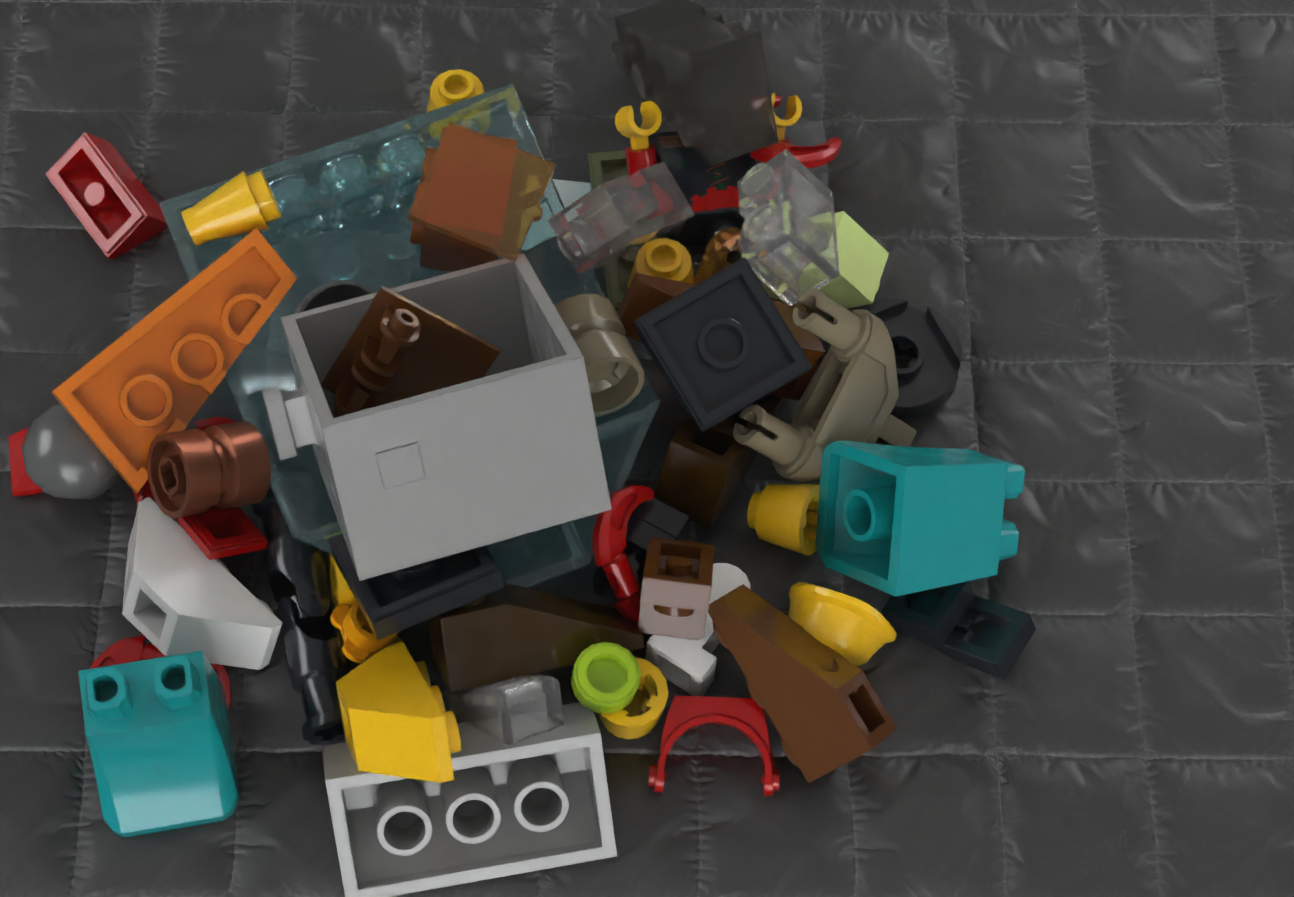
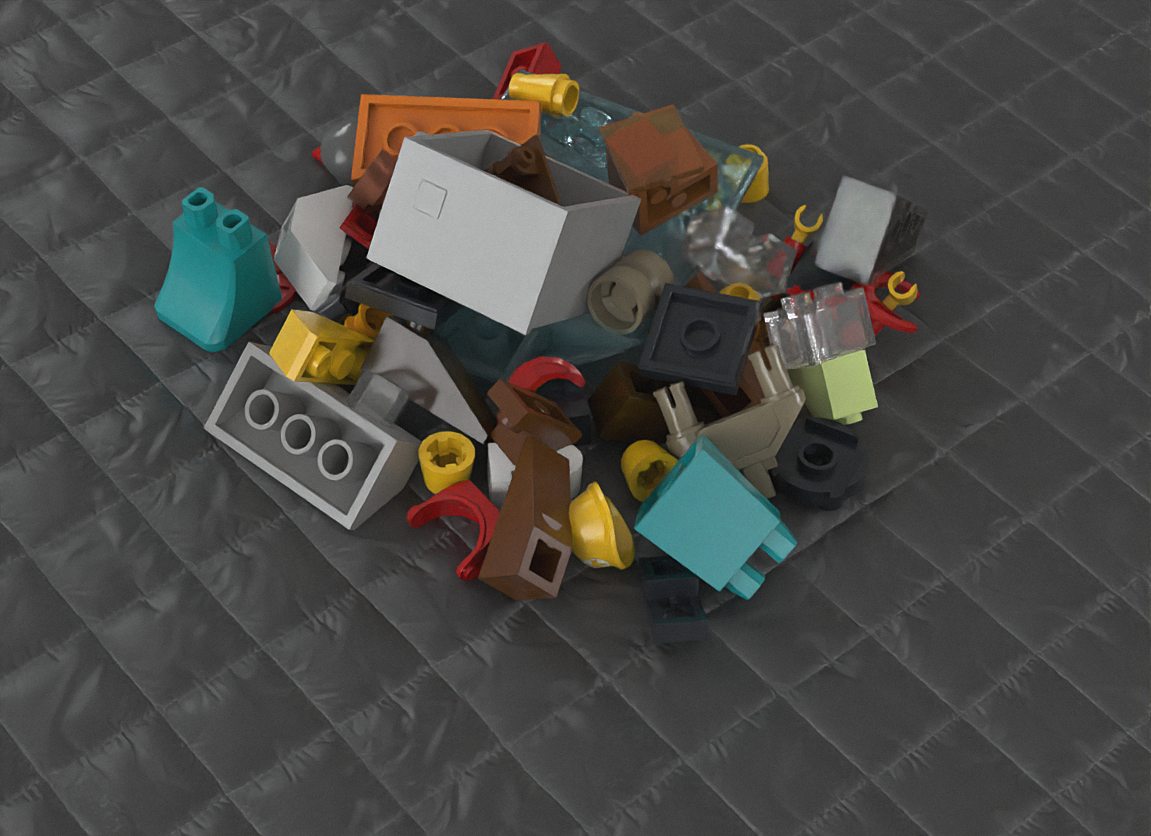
camera: 50 degrees right, 15 degrees down
(605, 677) = (439, 430): lime tile -> none

